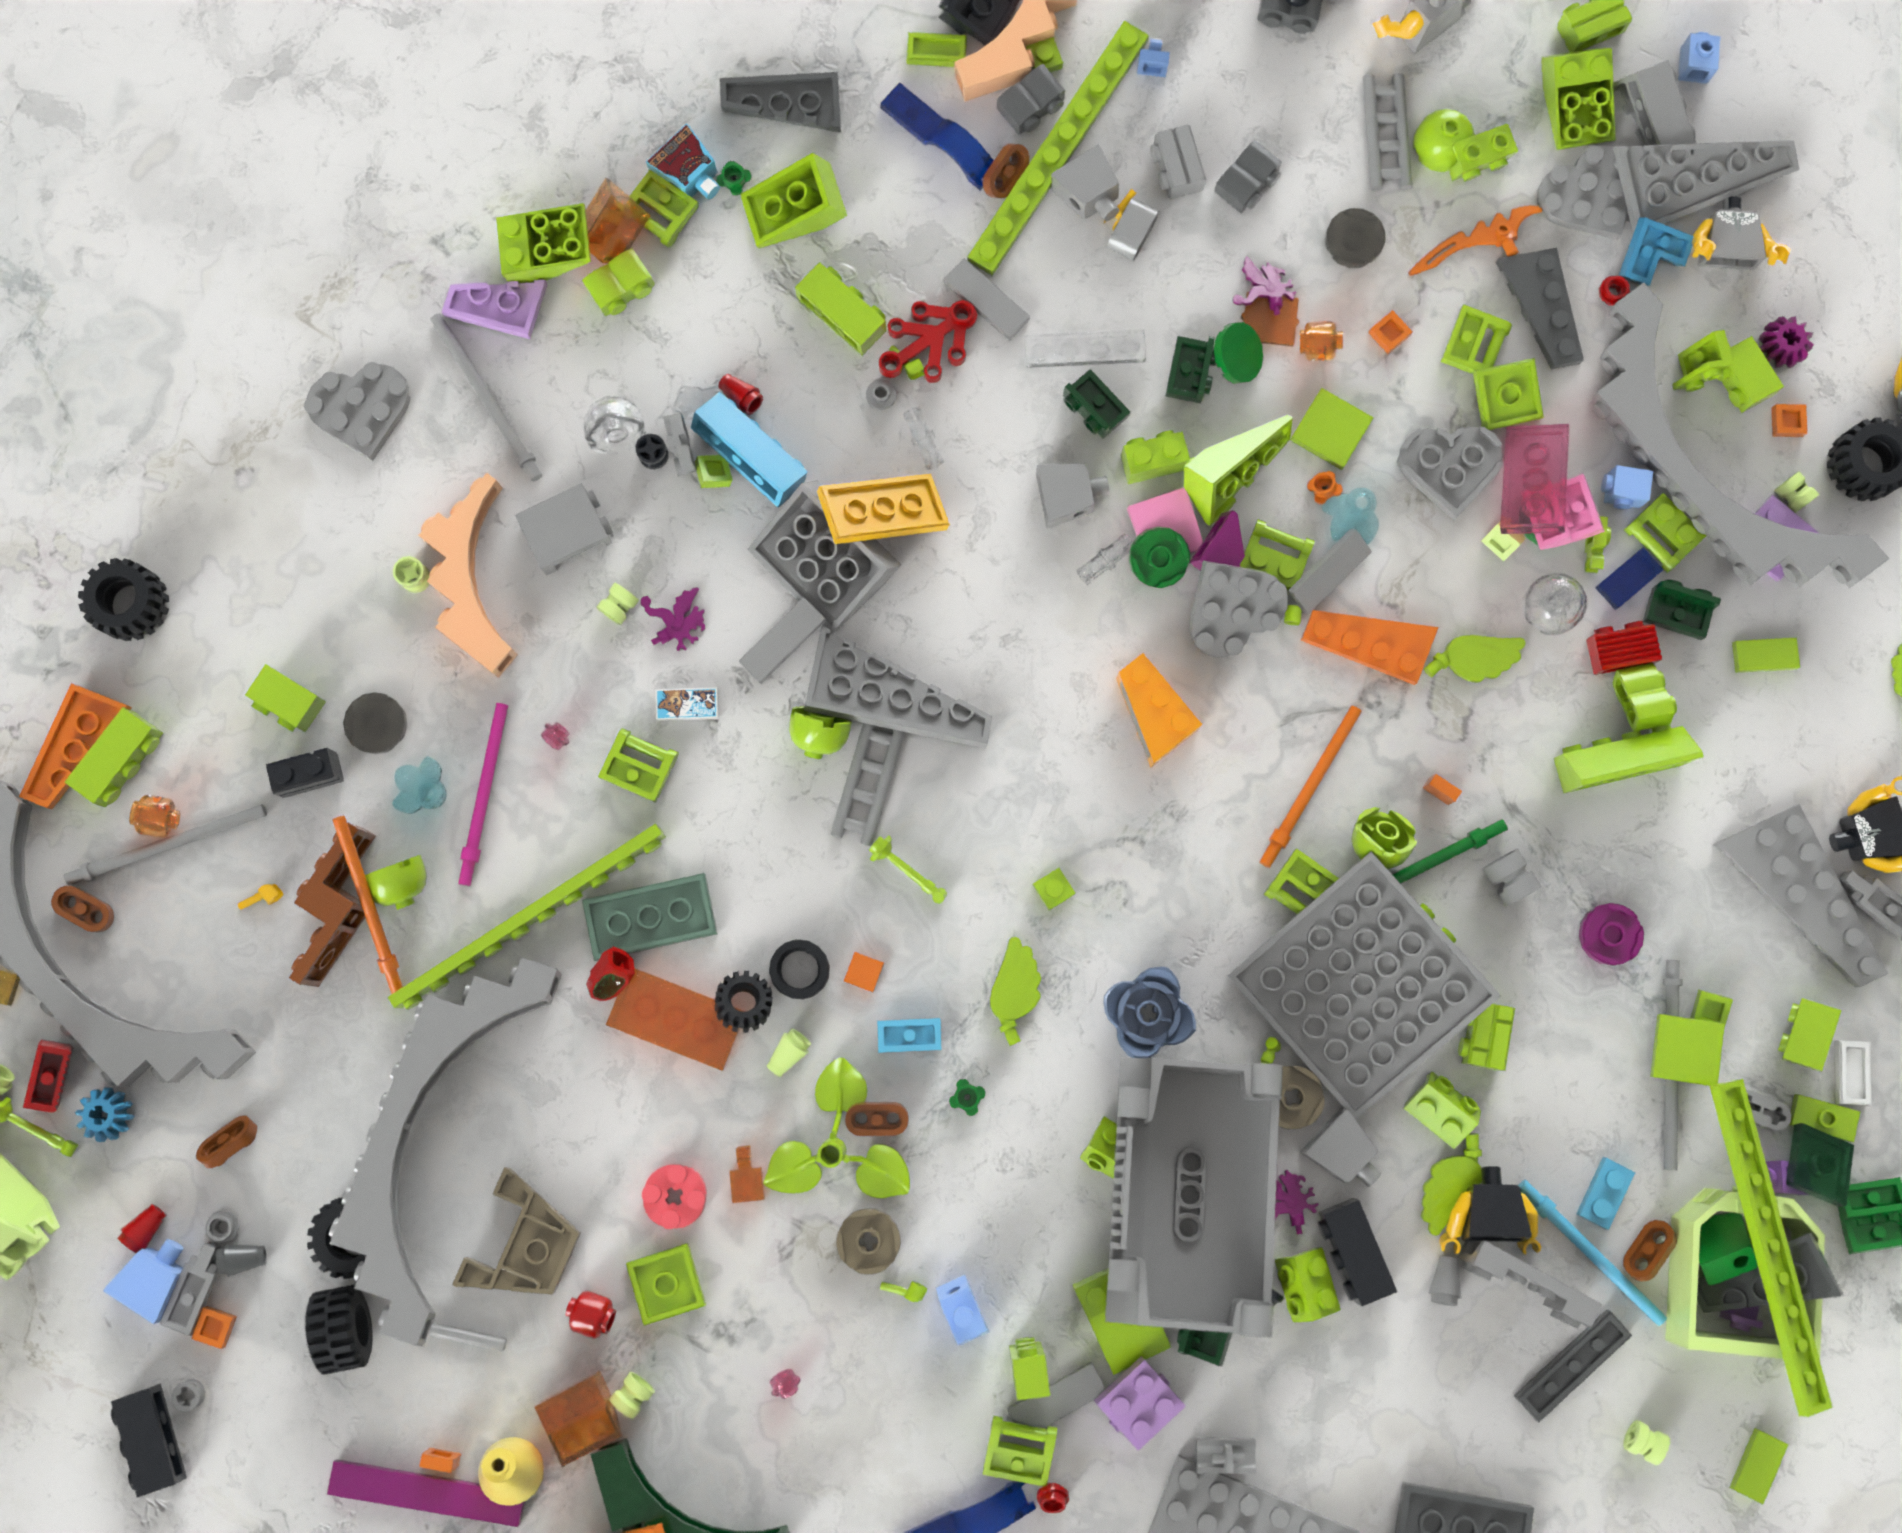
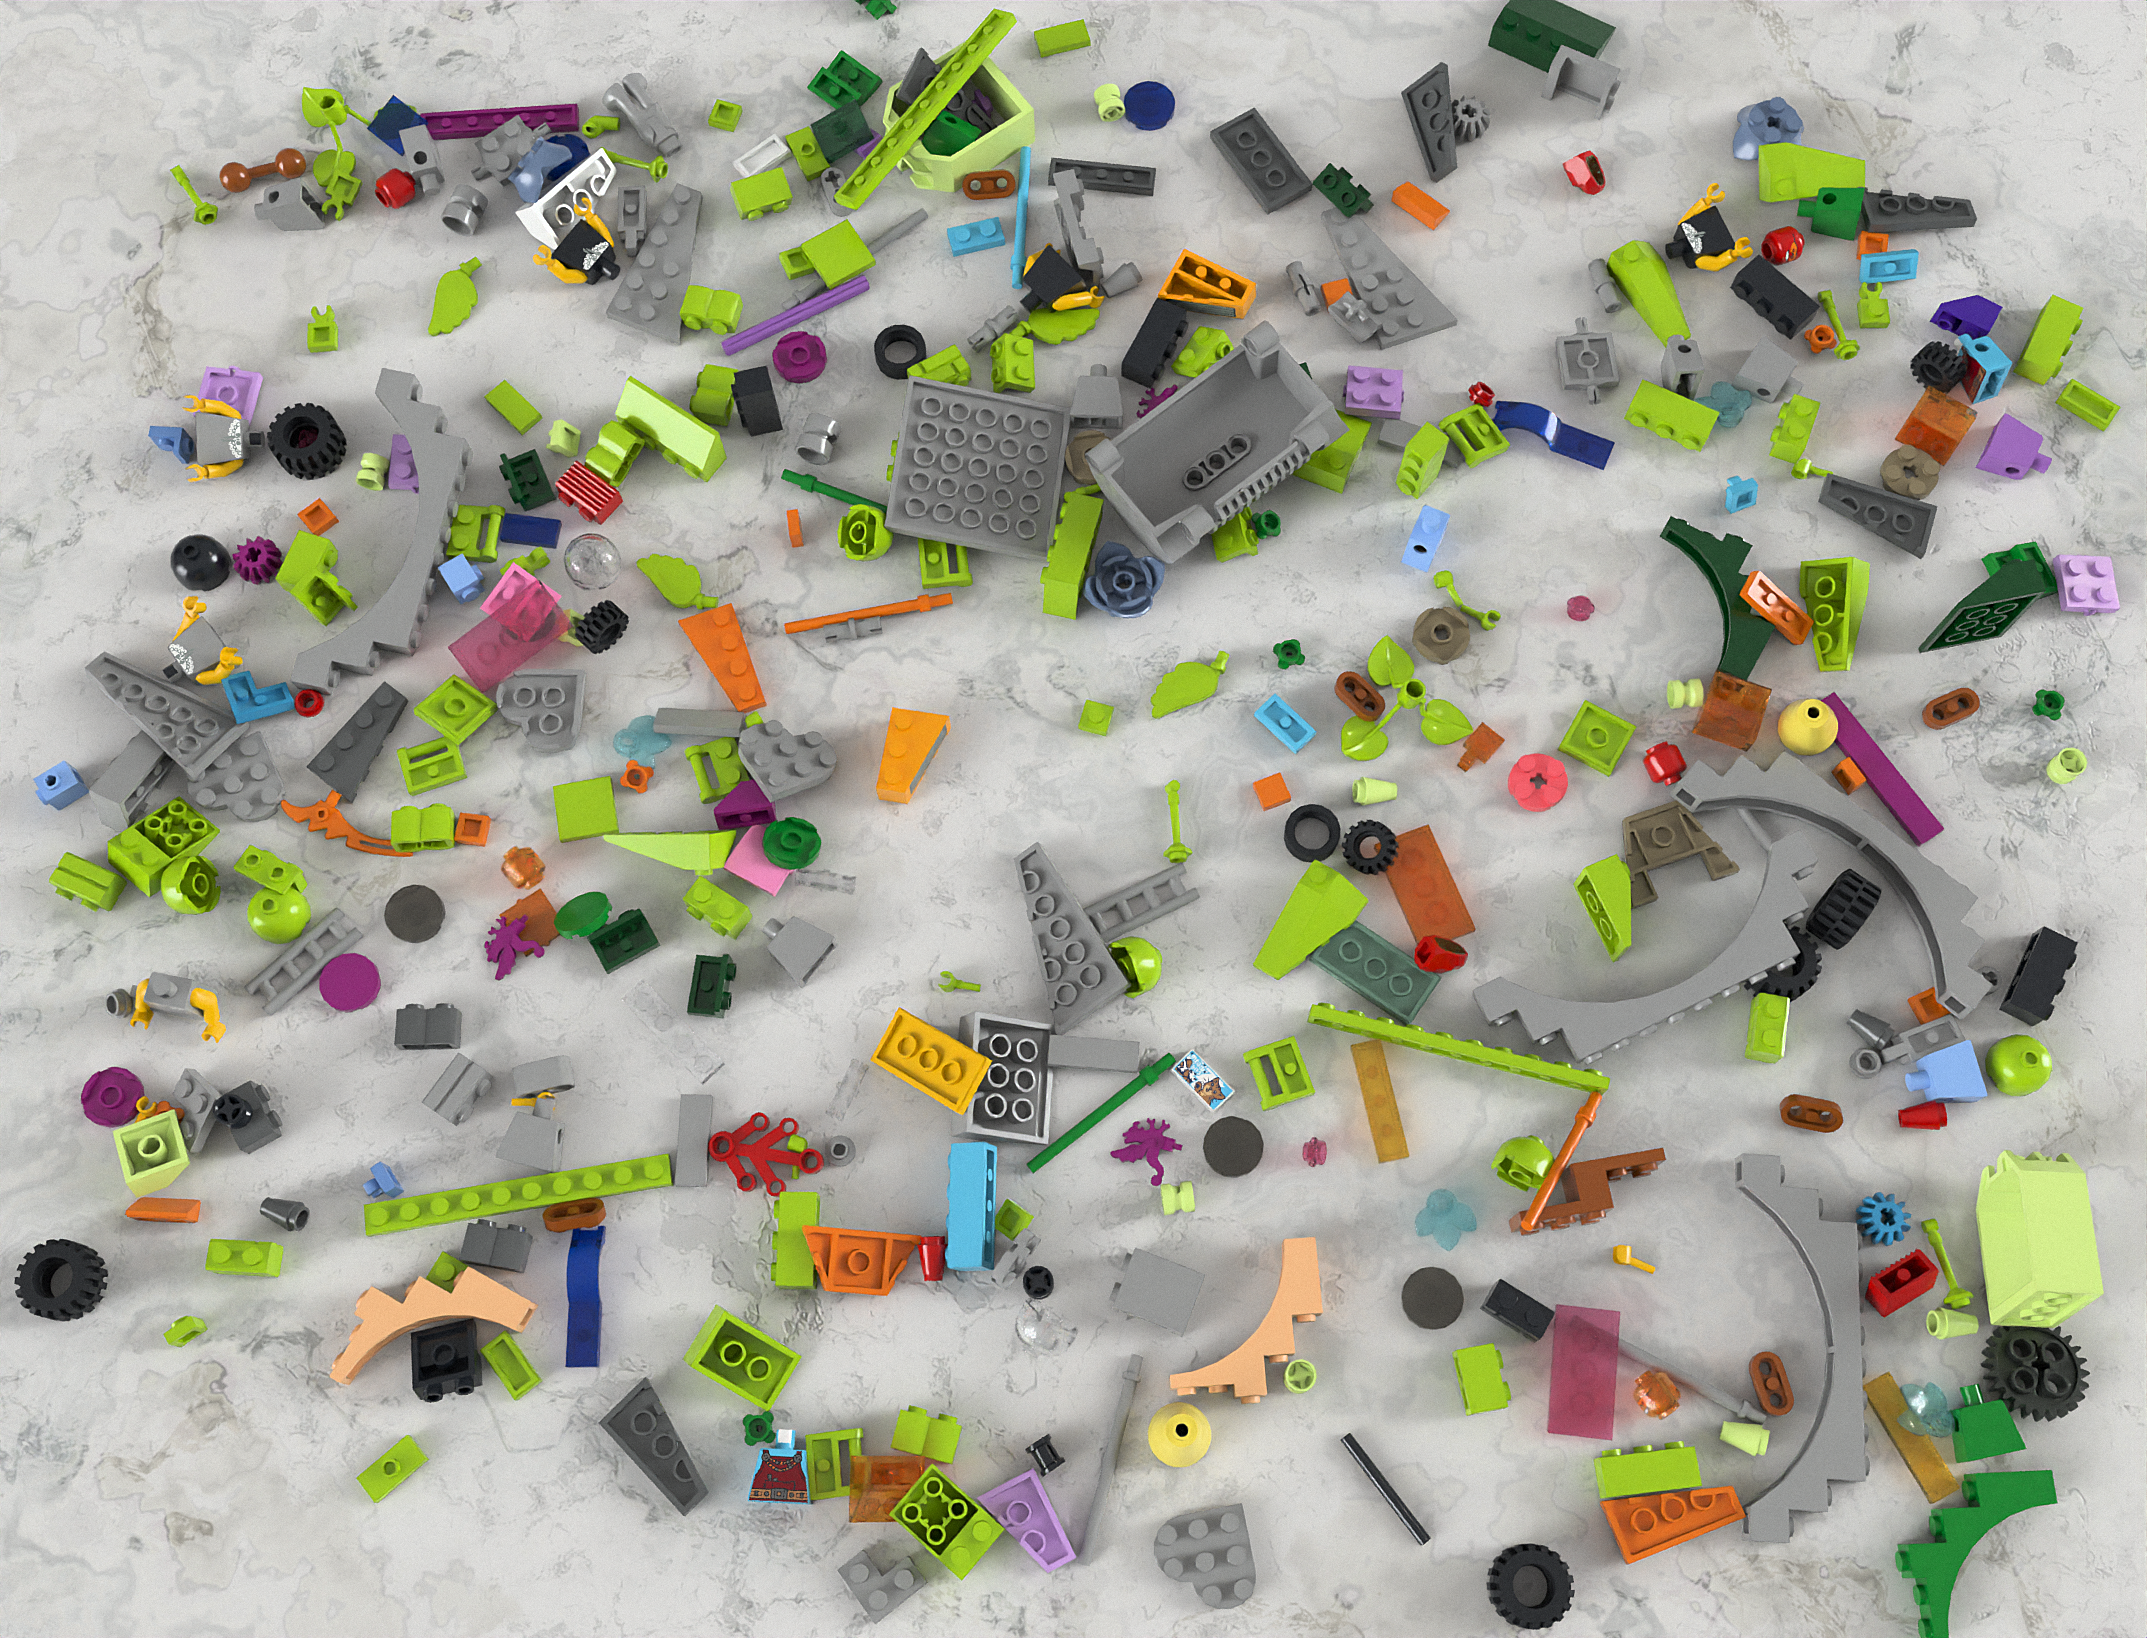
camera: 130 degrees left, 10 degrees down
(67, 853) = (1745, 1436): none -> yellowish green cone
(105, 1348) = (2018, 1065): none -> lime cylinder
(221, 781) = (1583, 1372): none -> clear pink tile
(284, 566) = (1385, 1489): none -> black bar
(285, 1420) = (1927, 890): none -> light grey arch
(315, 1173) = (1767, 1028): none -> lime brick
(454, 455) = (1170, 1447): none -> light yellow cone
(471, 853) = (1454, 1135): dark pink bar -> none
(523, 1148) = (1607, 899): none -> lime slope
(529, 352) = (1045, 1455): none -> black bush
(548, 822) = (1379, 1101): none -> clear yellow tile
(549, 167) = (879, 1592): none -> light grey plate
(618, 682) = (1233, 1147): none -> clear smoke tile
(728, 666) = (1147, 1076): none -> green bar
(731, 905) = (1314, 913): none -> lime wedge
(785, 338) = (858, 1258): none -> orange wing
(856, 1292) = (1482, 617): none -> lime hand
(931, 589) = (959, 984): none -> lime hand
(1092, 1194) = (1272, 521): none -> green plate
(1216, 996) = (1071, 555): none -> lime wedge
(1268, 1467) = (1334, 291): none -> orange tile
(1307, 760) = (852, 629): none -> light grey pin
(1317, 1448) = (1303, 288): none -> light grey pin
(1339, 151) = (349, 982): none -> magenta tile
(1371, 1346) = (1207, 288): none -> light orange wedge
(1422, 292) = (423, 828): none -> lime brick
(1482, 558) = (601, 627): none -> black tyre
(1495, 1123) = (993, 328): none -> light grey pin
(1522, 89) = (190, 885): none -> lime cylinder
(1564, 1019) = (893, 334): none -> black tyre
(1588, 848) = (756, 401): none -> black brick
(1613, 1480) = (1149, 105): none -> clear blue tile
(1632, 829) = (714, 395): none -> lime brick
(1657, 965) = (795, 315): none -> medium lavender axle
(1695, 670) = (564, 438): none -> yellowish green tile
(1724, 894) = (711, 309): none -> lime brick
(1823, 298) = (200, 562): none -> black cylinder
(1874, 461) = (307, 437): none -> clear pink plate

